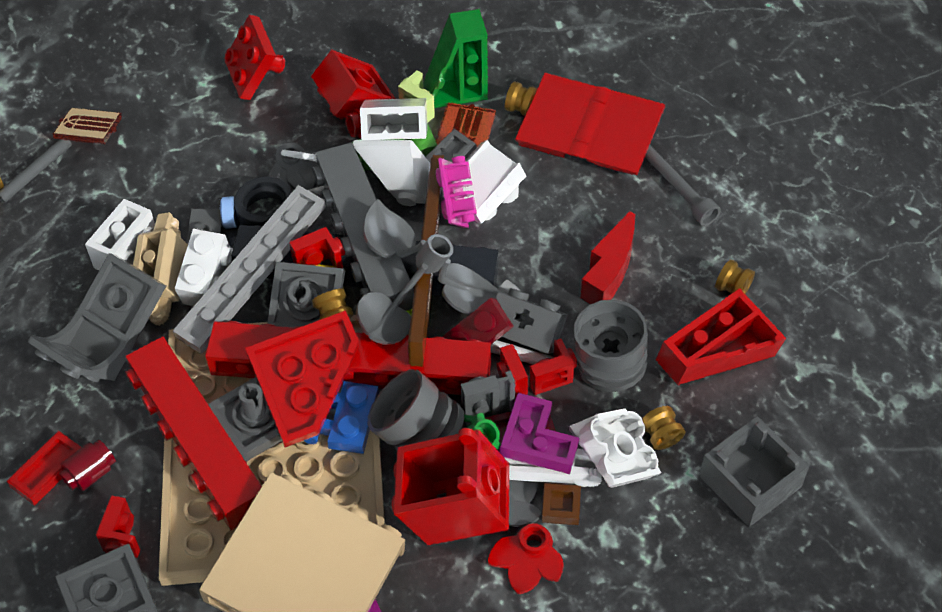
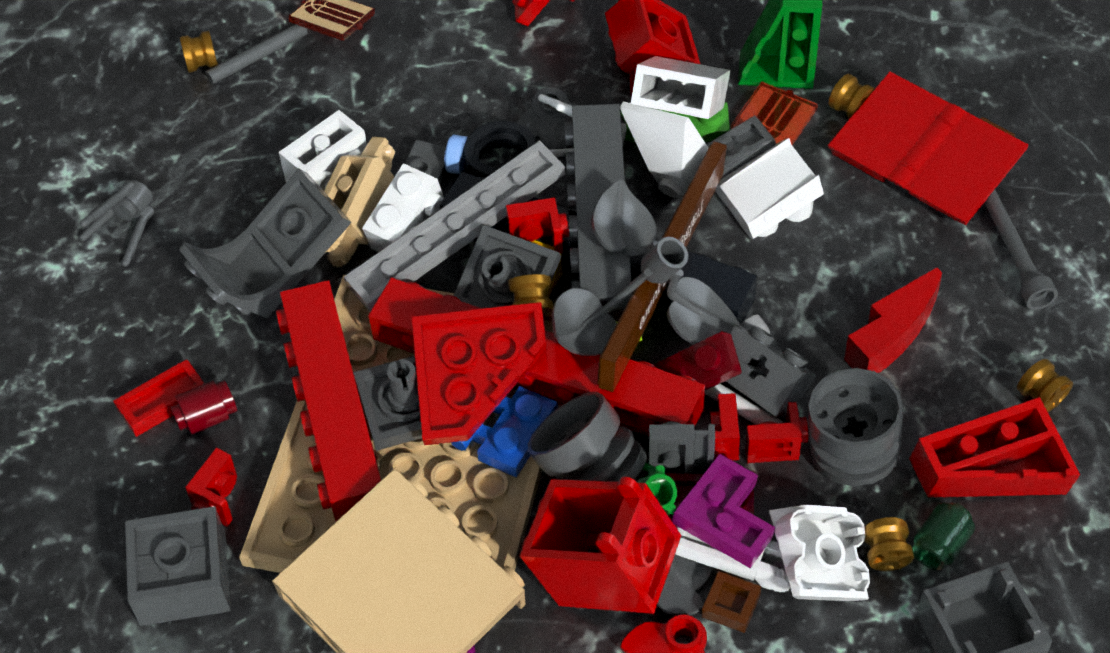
camera: 20 degrees right, 0 degrees up
(413, 88) = (724, 55): yellowish green bracket -> none
(450, 177) = (722, 207): dark pink hinge -> none
(700, 410) = (943, 535): none -> clear green brick

